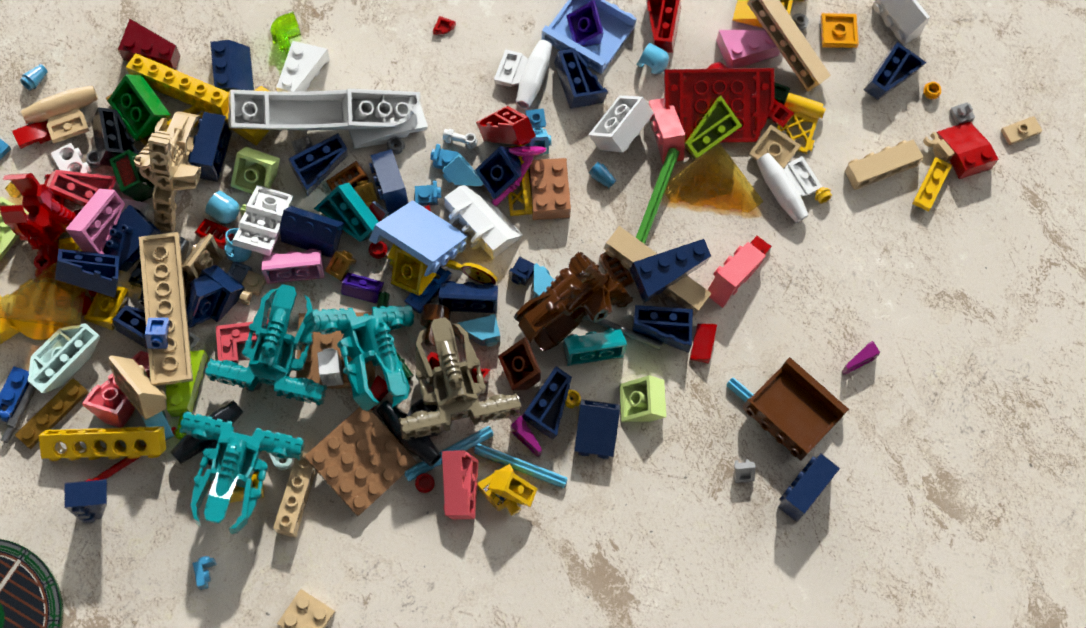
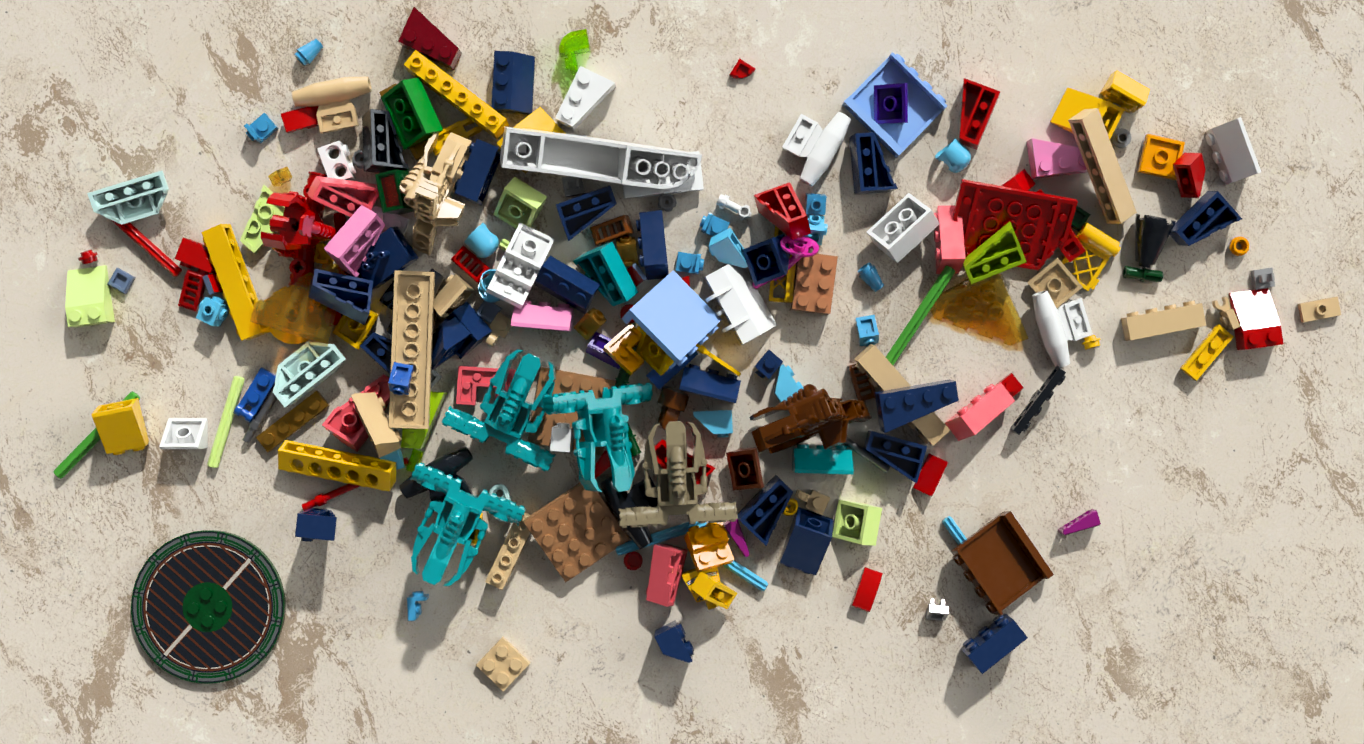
camera: 15 degrees right, 20 degrees up
(377, 279) = (622, 351): none -> light orange plate
(481, 552) = (673, 643): none -> dark blue slope
(498, 448) = (708, 546): none -> light orange plate
(596, 390) = (814, 501): none -> tan plate
(609, 221) = (867, 330): none -> dark azure bracket
(668, 464) = (867, 589): none -> red slope
(786, 258) = (1034, 406): none -> black hinge
(850, 93) = (1150, 238): none -> black cone
(852, 129) = (1142, 274): none -> dark green axle
(869, 38) = (1190, 174): none -> red slope

